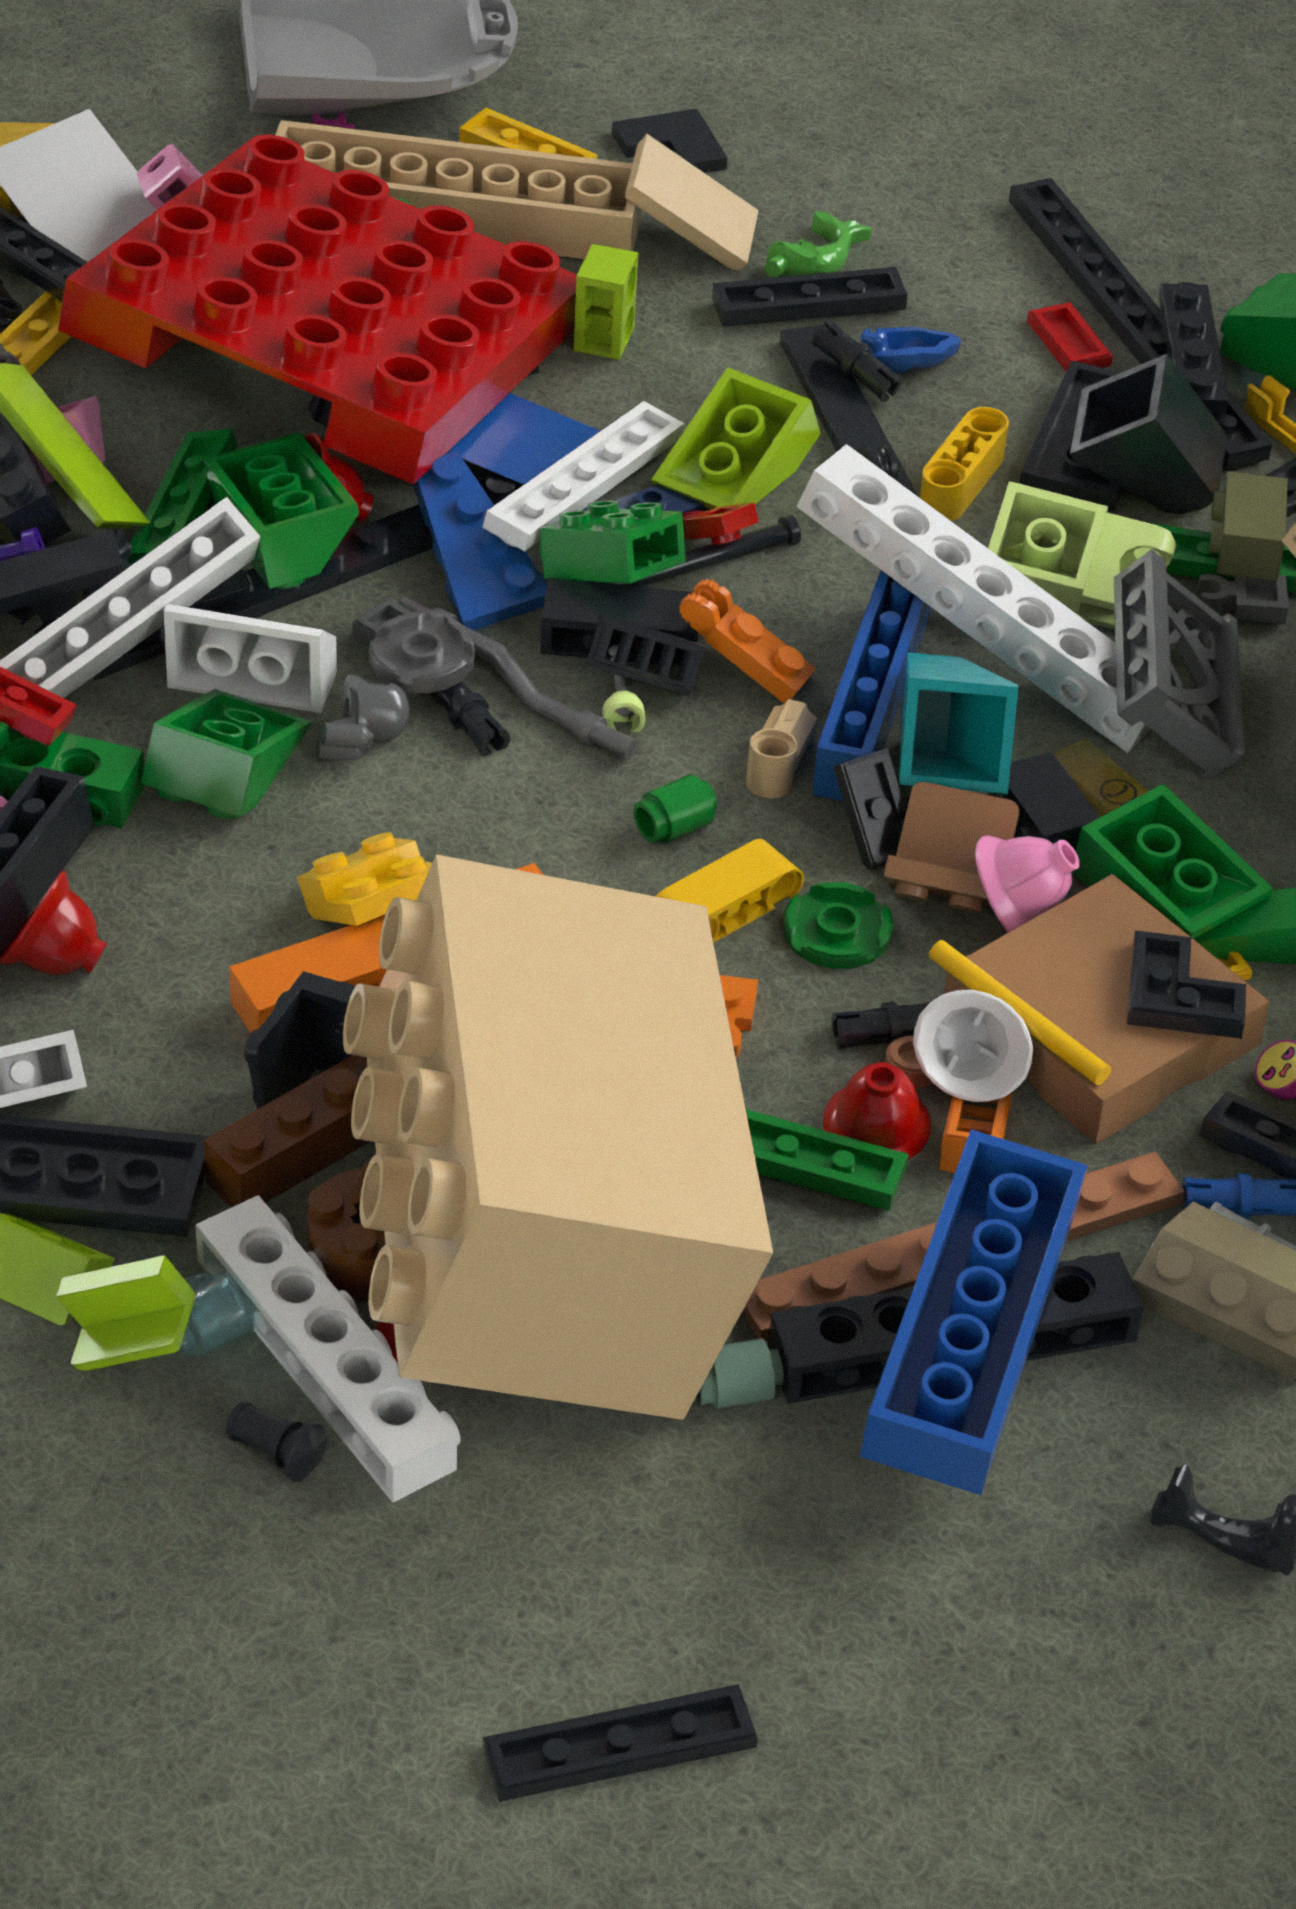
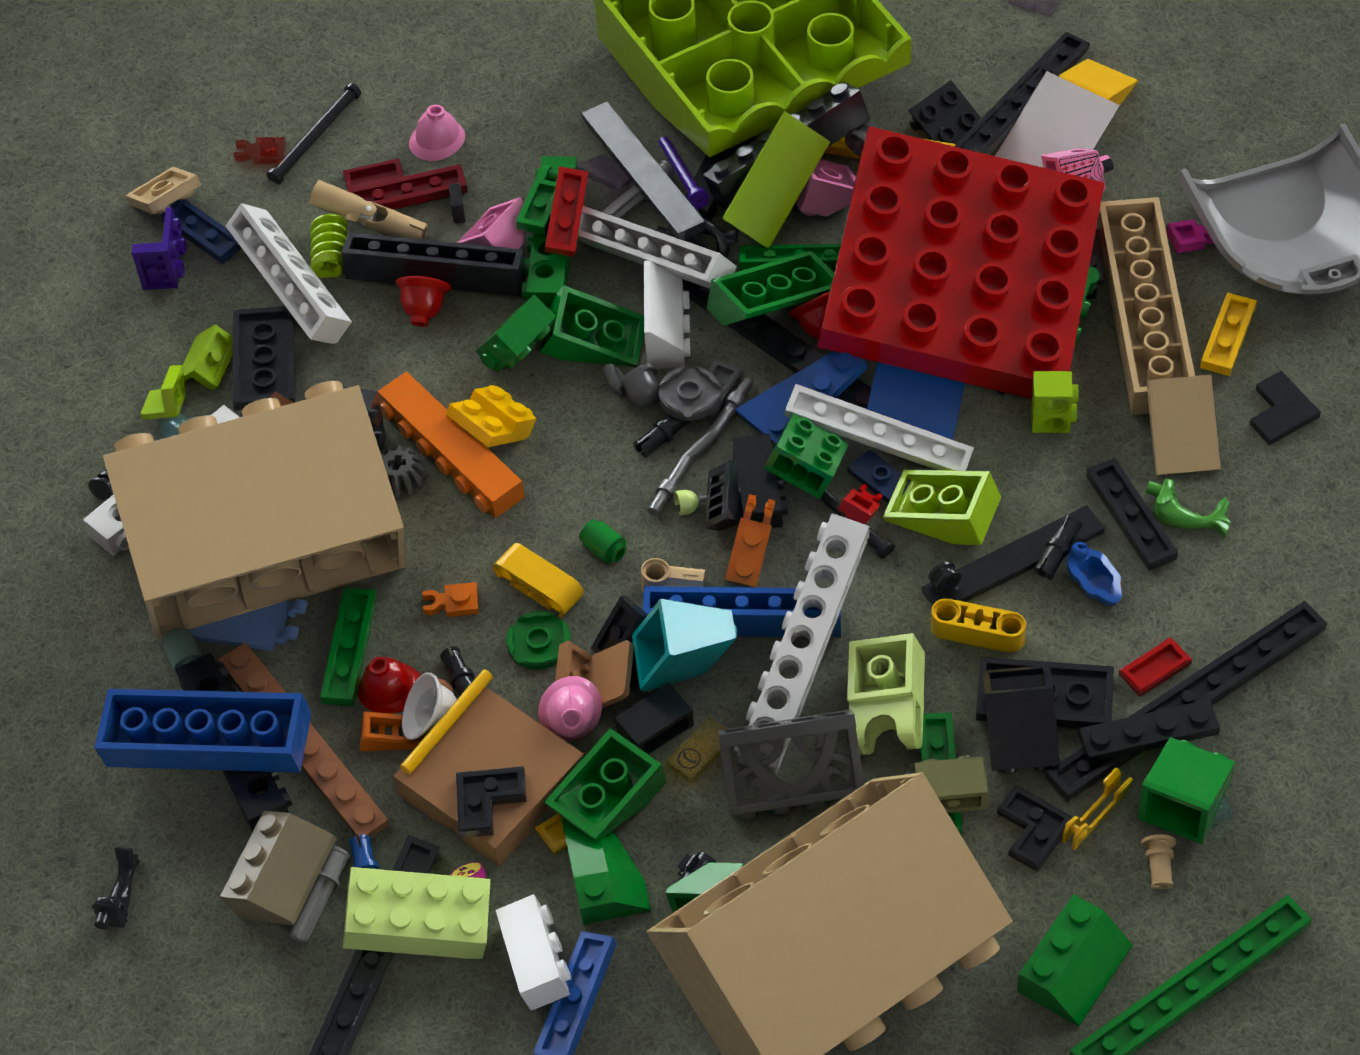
camera: 85 degrees right, 10 degrees up
(213, 815) = (516, 335): none -> green brick

